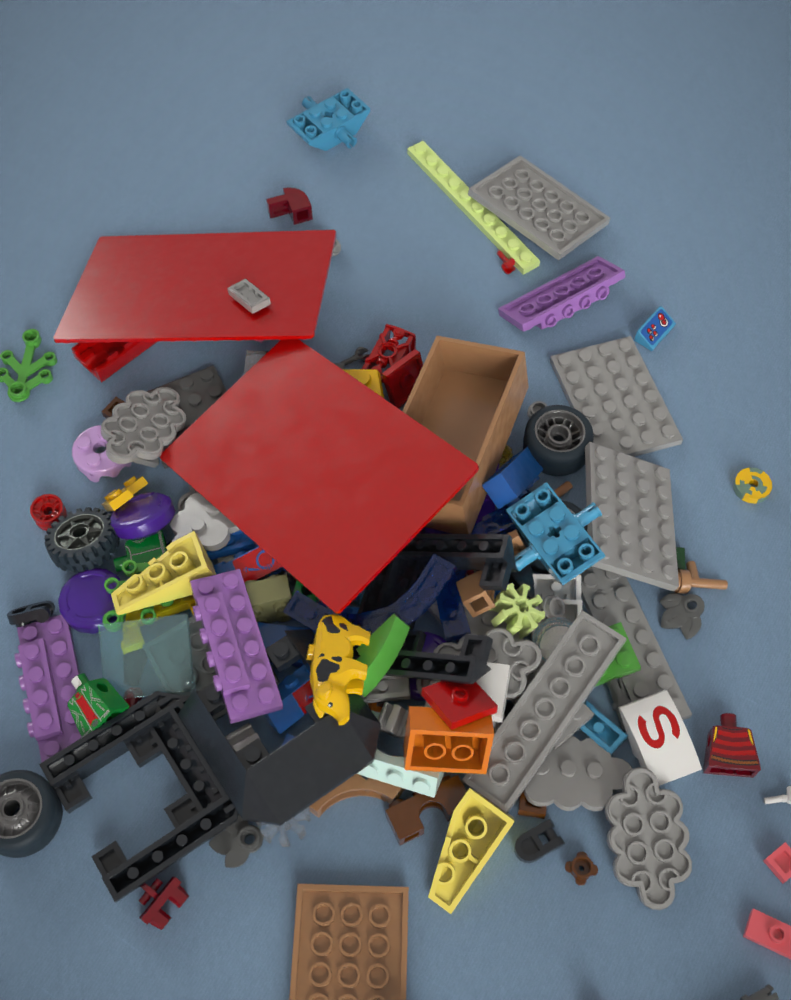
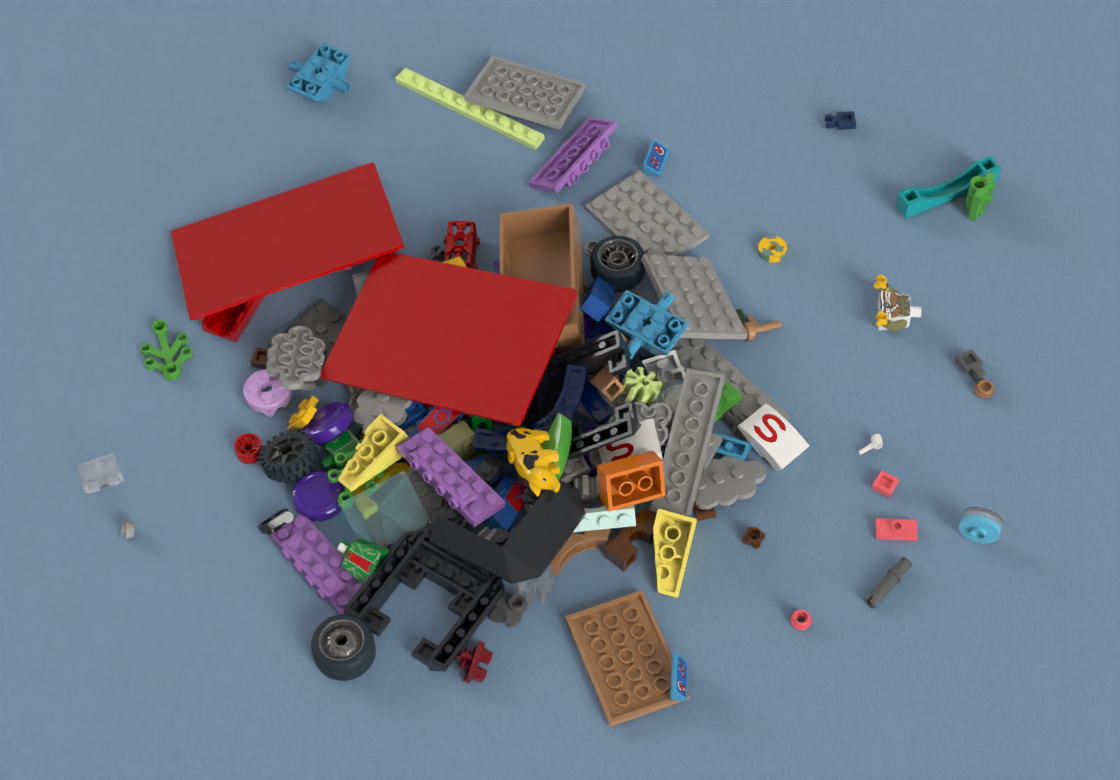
camera: 20 degrees left, 5 degrees down
(249, 296) = (336, 233): light grey plate -> none
(291, 202) = (321, 151): dark red brick -> none
(401, 377) = (482, 254): red plate -> none
(459, 702) = (629, 451): red plate -> none
(507, 265) = (520, 146): red hand -> none
(530, 848) = (713, 536): black plate -> none
(648, 838) = (790, 500): light grey plate -> none
(680, 615) = (754, 354): dark grey plate -> none
(731, 750) = (824, 428): dark red torso -> none

